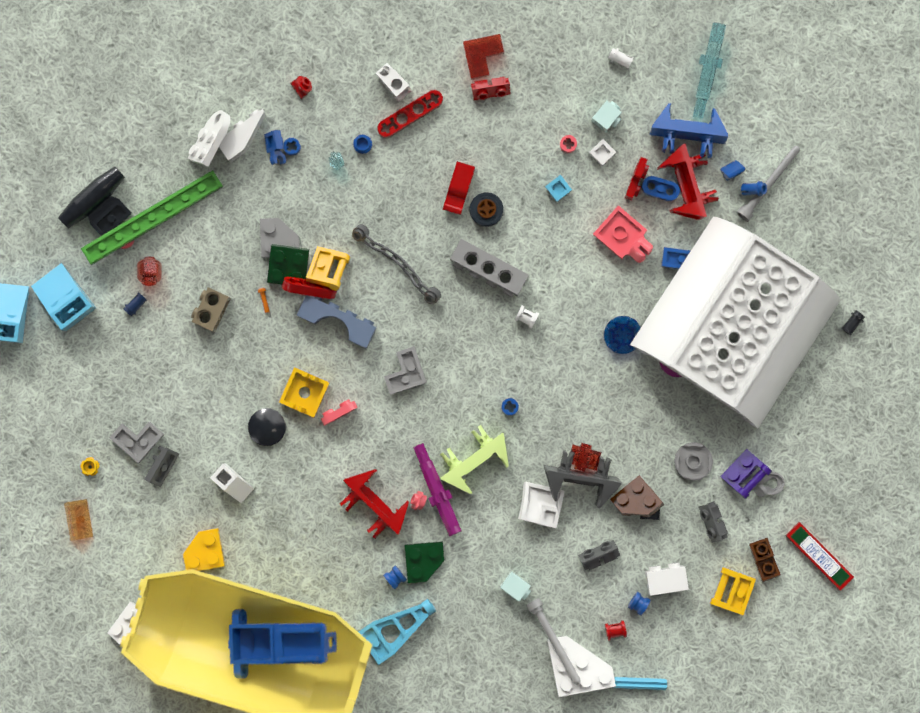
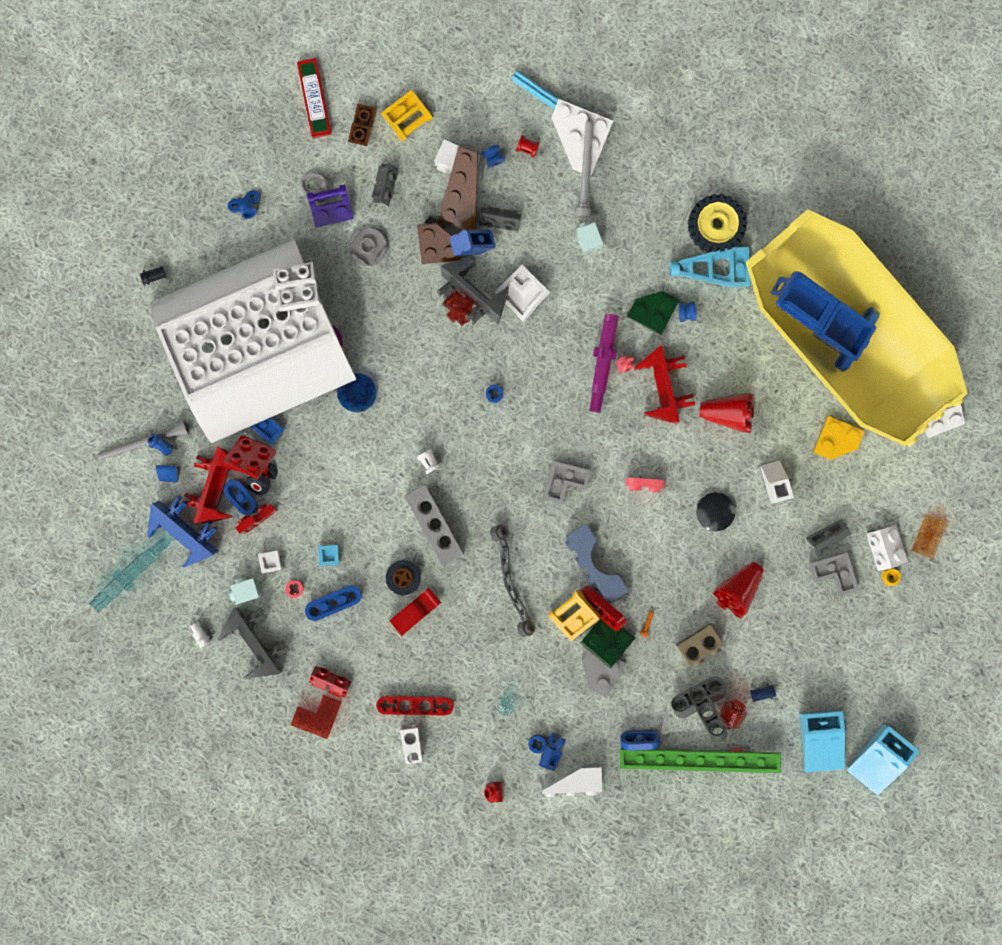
camera: 150 degrees left, 0 degrees up
(97, 204) = (740, 804): black plate -> none
(107, 488) = (887, 548): none -> white bracket
(177, 262) = (703, 705): none -> dark grey beam
(206, 375) = (739, 589): none -> red cone
(209, 138) = (605, 797): white plate -> none
(210, 202) = (640, 740): none -> blue plate
(291, 392) = (676, 526): yellow piece -> none
(306, 516) = (730, 411): none -> red cone
(362, 144) = (473, 705): blue plate -> none
(413, 682) = (722, 209): none -> wheel
(488, 447) = (570, 367): yellowish green hose -> none
(535, 146) = (325, 607): none -> blue plate
(587, 88) = (265, 656): none -> dark grey hose
(608, 518) = (472, 242): none -> blue brick
(624, 236) = (299, 477): coral plate -> none
(642, 548) = (461, 193): none -> reddish brown wing
(669, 224) = (254, 460): none -> red plate
(727, 384) = (296, 286): none -> white slope
(816, 430) = (245, 205): none -> blue piece

